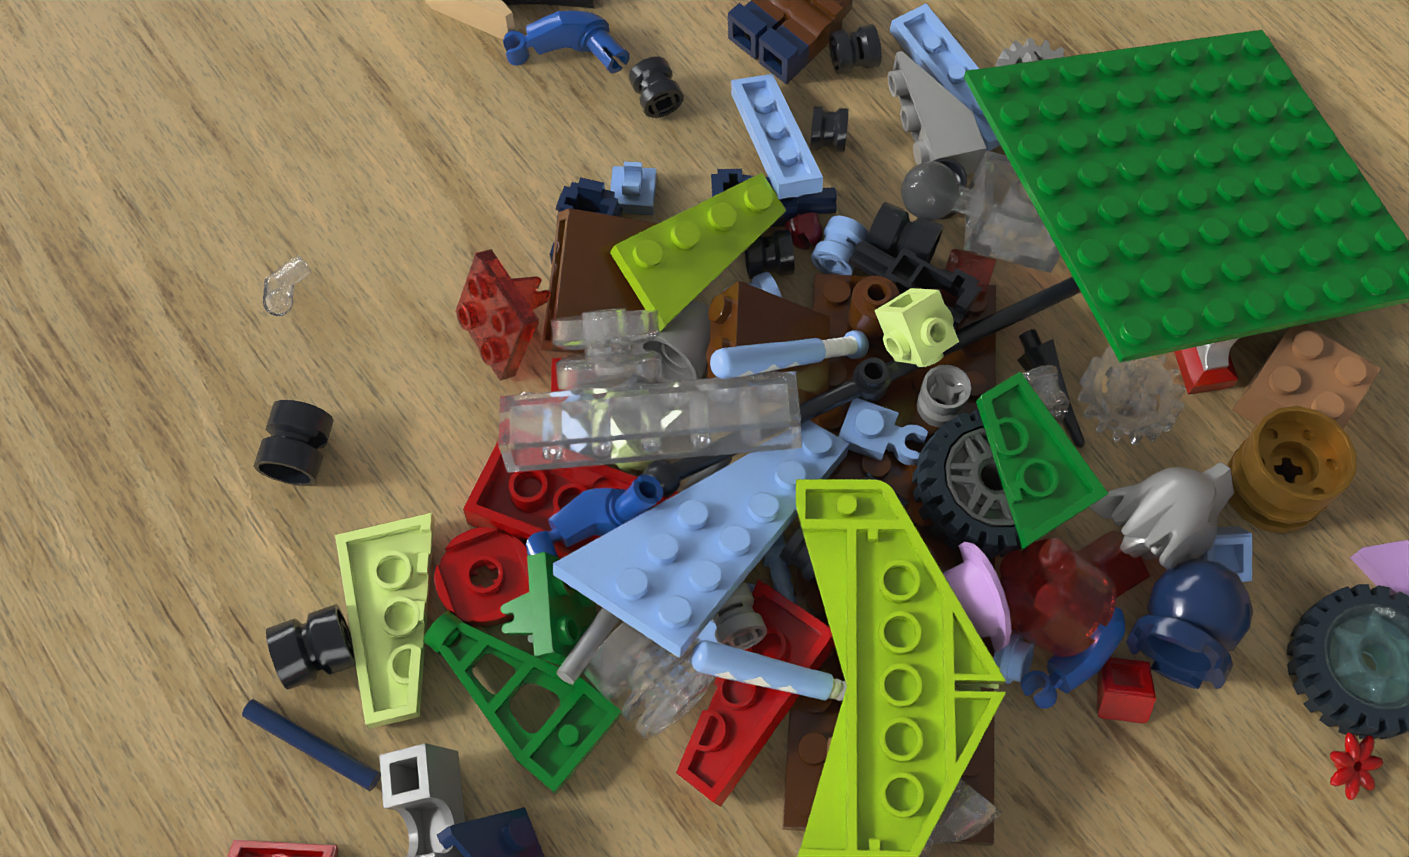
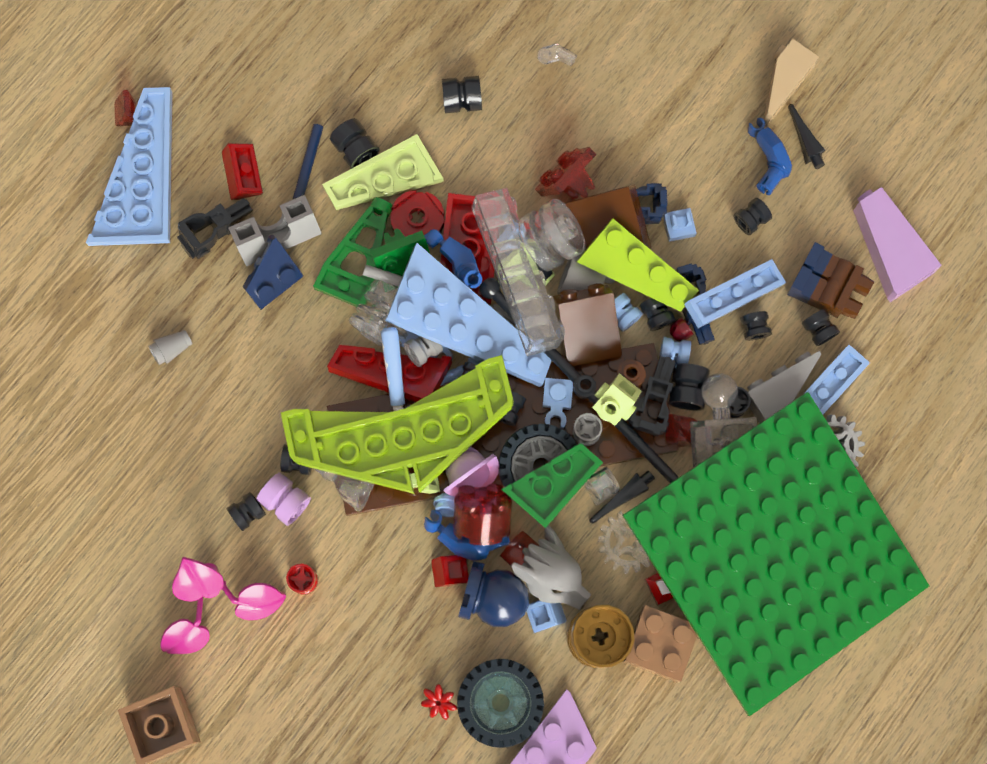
camera: 75 degrees right, 10 degrees up
(766, 357) = (574, 327): light blue piece -> none

